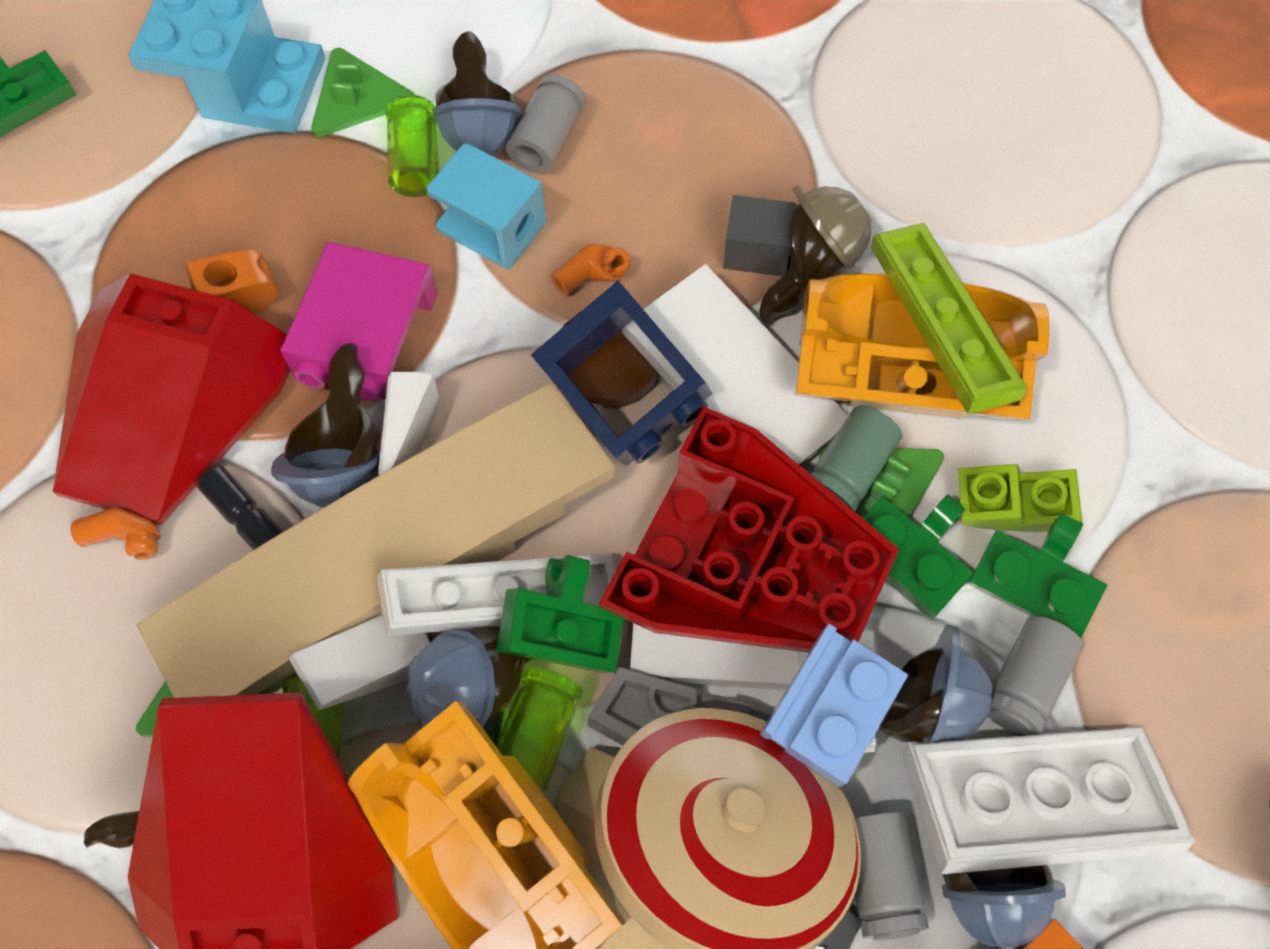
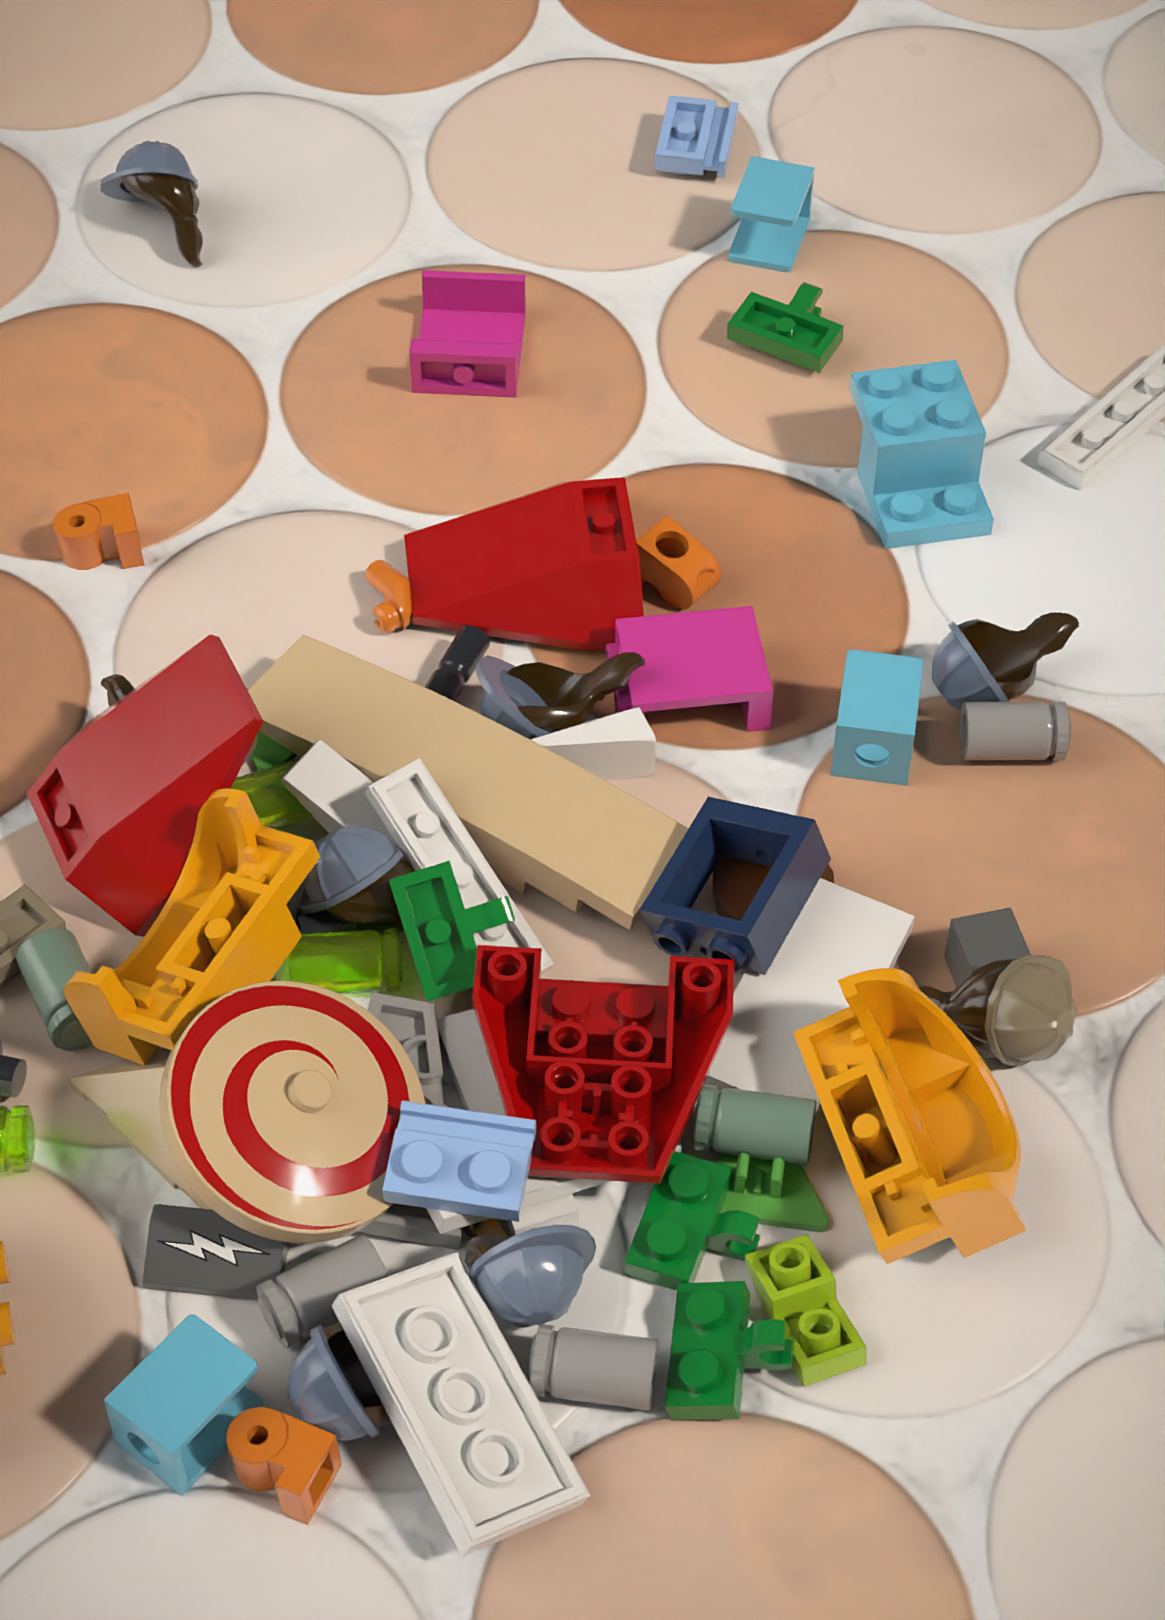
camera: 65 degrees right, 15 degrees down
(352, 94) = (959, 573): bright green piece -> none
(411, 145) = (915, 629): clear neon green piece -> none
(591, 263) = (871, 832): orange arm -> none
(948, 319) = (948, 1124): lime tile -> none

